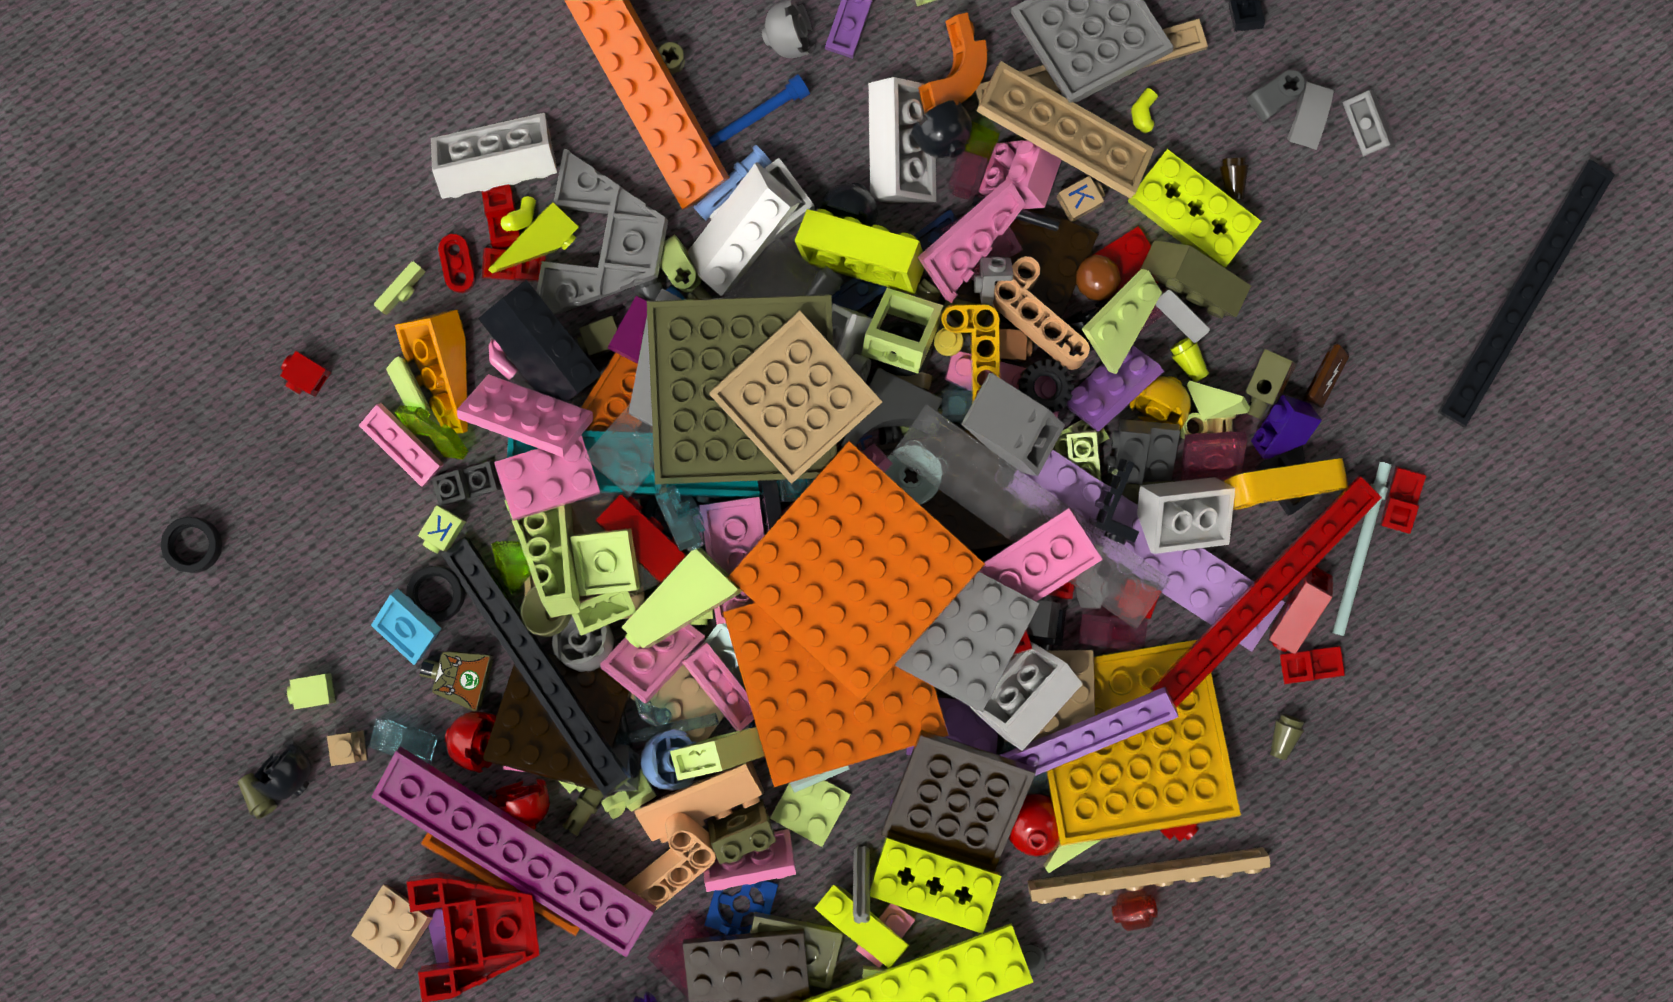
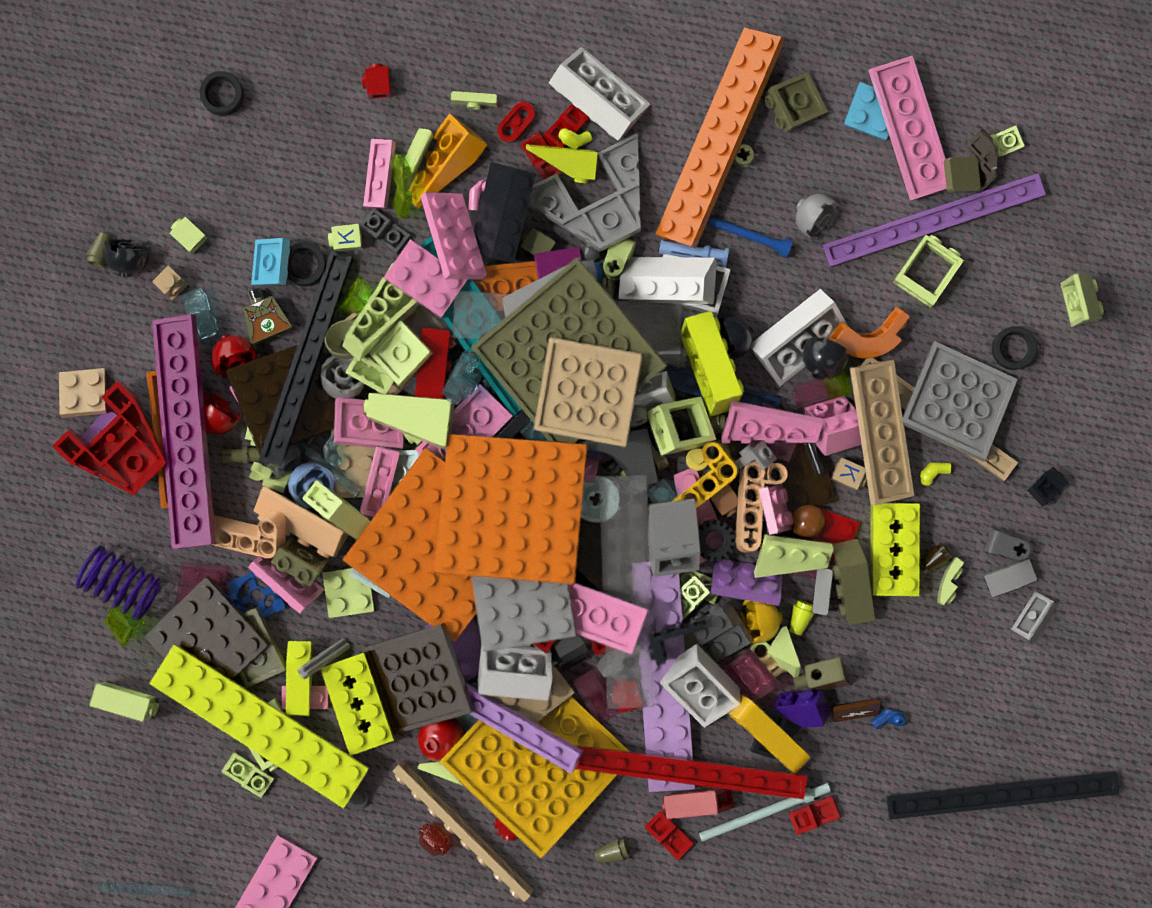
camera: 50 degrees right, 0 degrees up
(1054, 295) = (775, 509): none -> bright pink plate
(1272, 188) = (947, 588): none -> yellowish green slope
(1359, 346) = (889, 716): none -> blue arm

